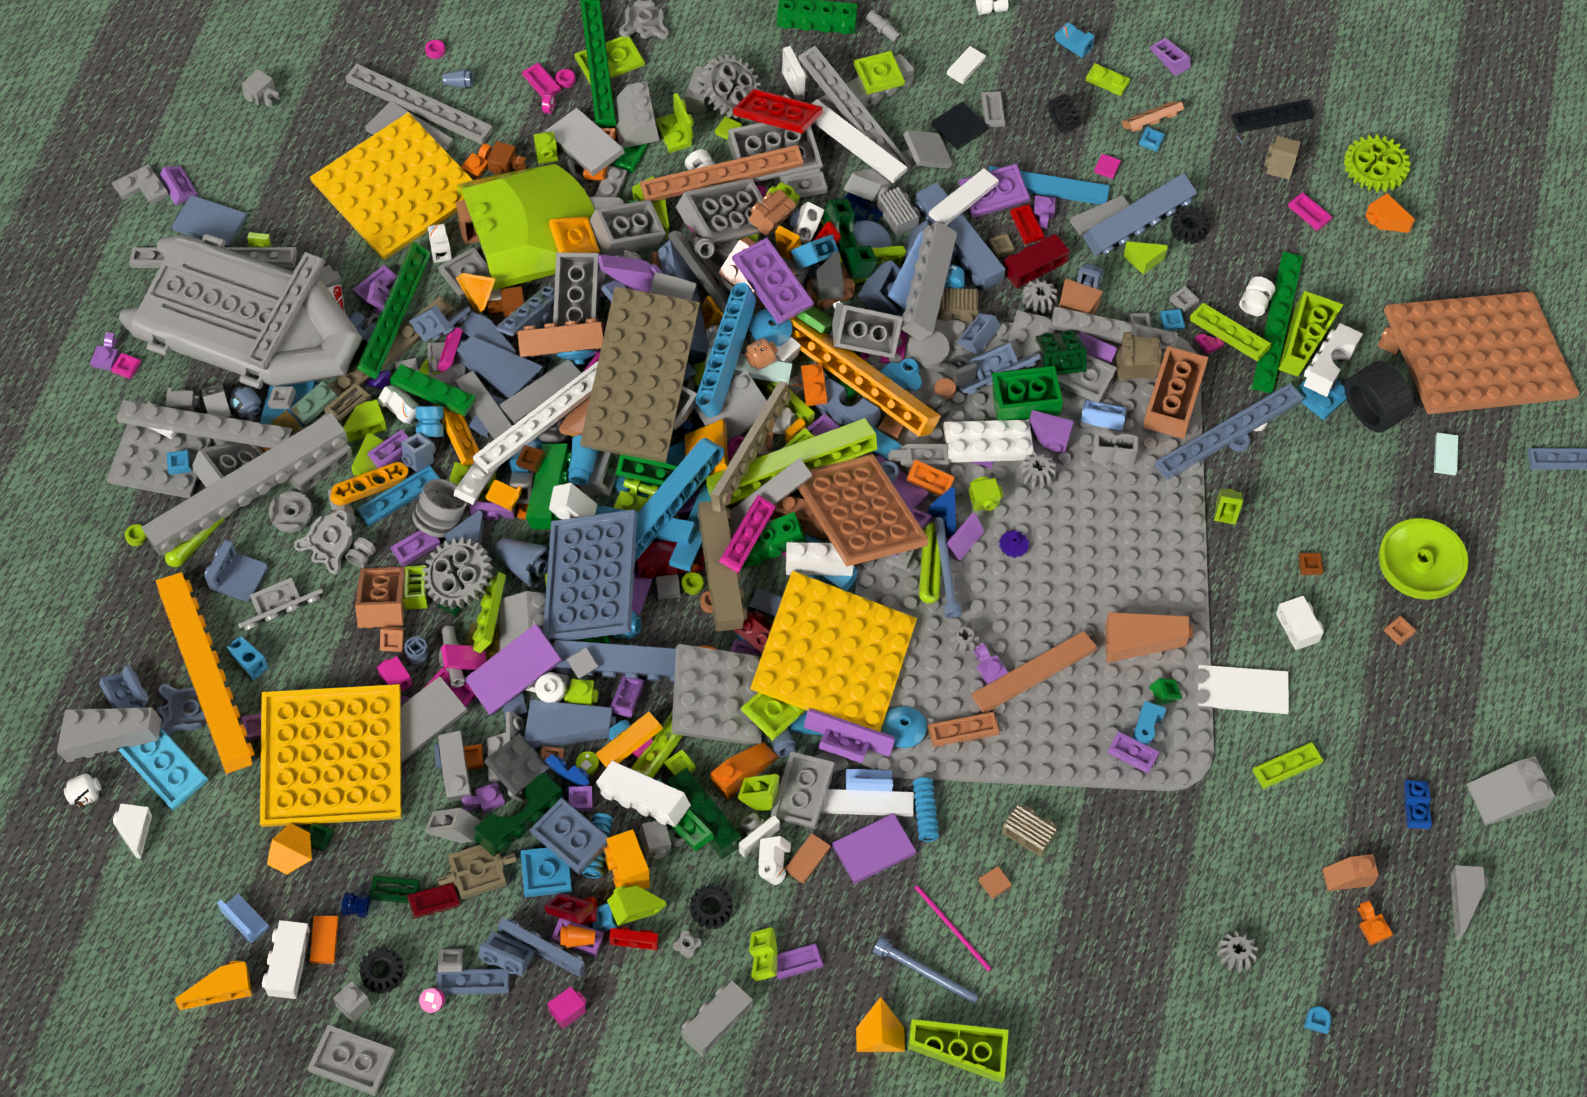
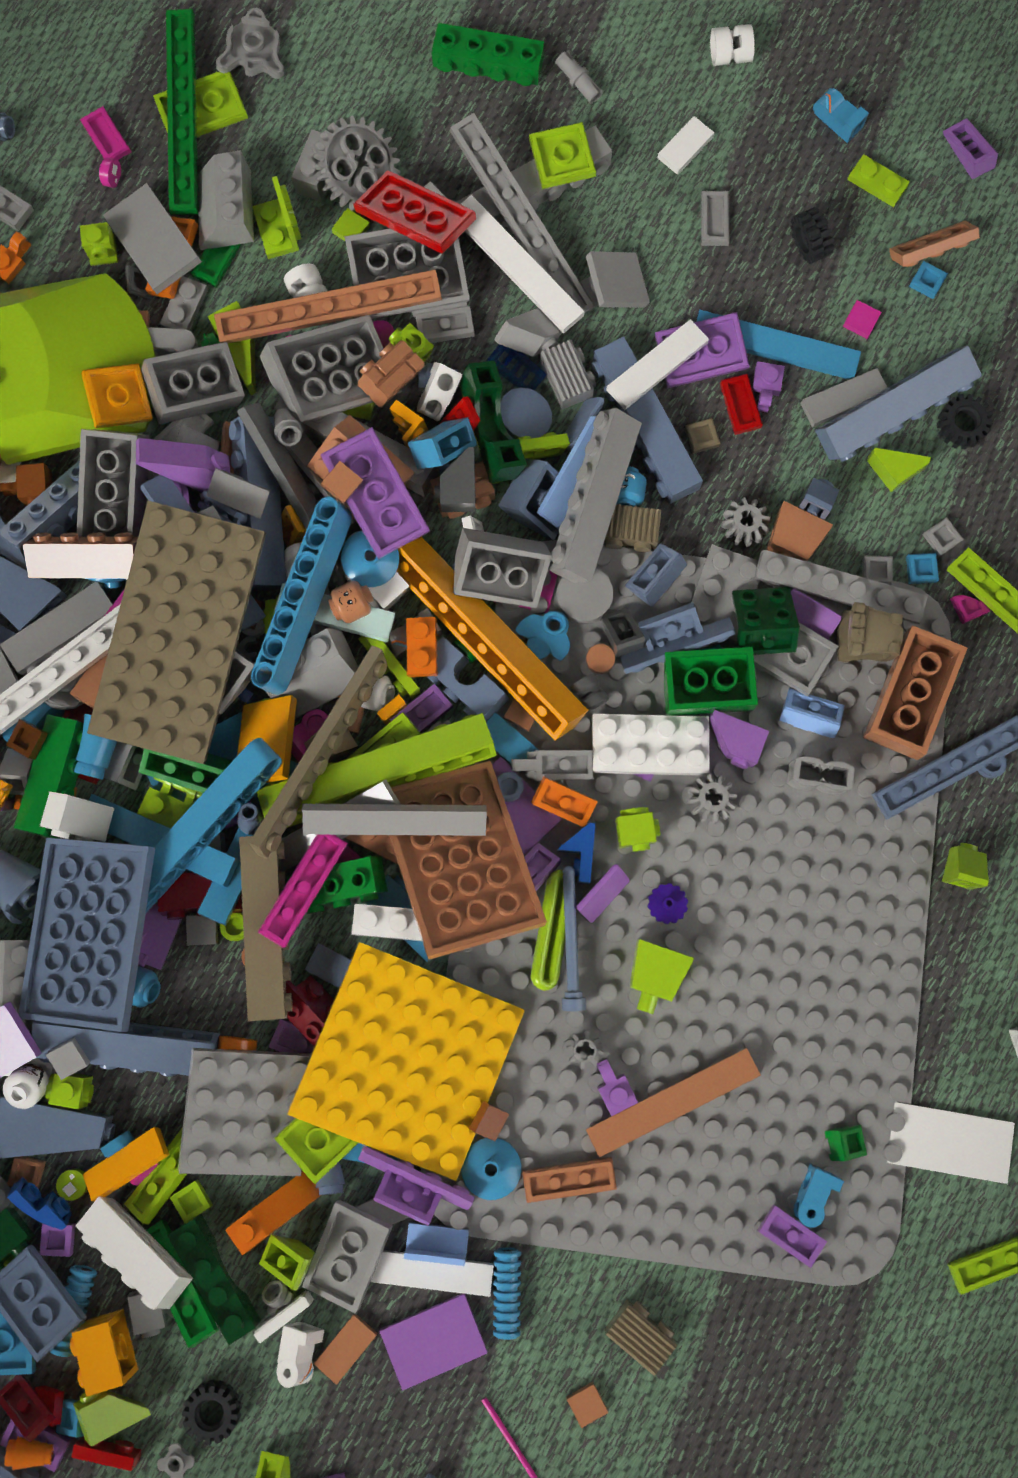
camera: 10 degrees right, 20 degrees up
(504, 158) = (42, 257): dark orange brick -> none
(565, 78) = (138, 133): dark pink tile -> none
(627, 696) = (130, 1096): medium lavender plate -> none
(701, 494) = (250, 825): none -> sand blue cone
(749, 271) = (341, 482): none -> nougat tile
(794, 73) = (447, 151): white plate -> none
(810, 483) = (394, 819): none -> light grey tile
(817, 319) = (441, 541): bright green tile -> none
(899, 690) = (489, 1121): none -> dark orange tile
(959, 126) = (666, 242): black tile -> none
(1012, 585) = (657, 974): none -> lime torso
(1036, 261) = (746, 465): dark red brick -> none
(1144, 634) = (822, 1062): nougat slope -> none

